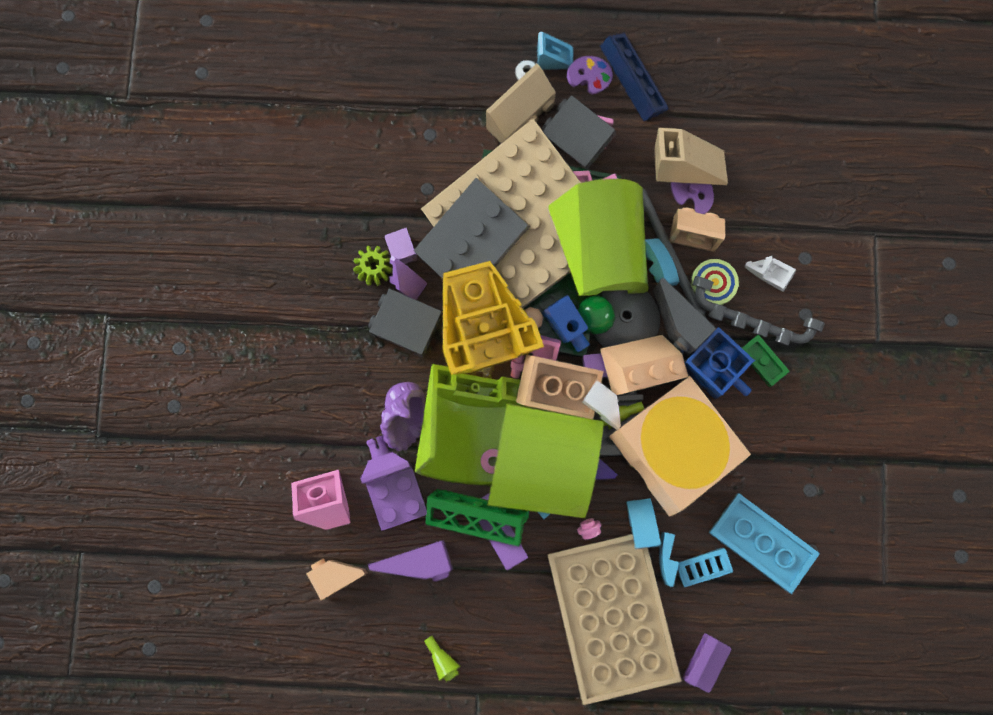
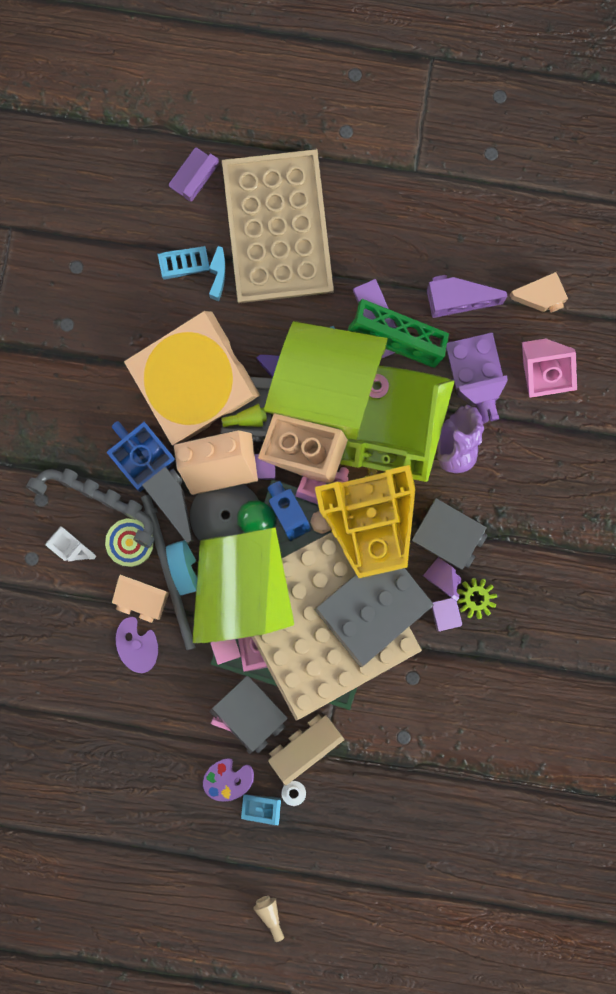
camera: 175 degrees left, 5 degrees up
(444, 664) = (443, 199): lime cone -> none
(589, 528) = (289, 311): bright pink plate -> none
(604, 403) = (262, 425): white slope -> none
(633, 76) = (180, 776): dark blue slope -> none
(643, 523) = (237, 310): medium azure slope -> none
(688, 159) = (137, 671): tan slope -> none
(764, 543) = (122, 278): medium azure plate -> none
(766, 362) = (93, 455): green plate -> none

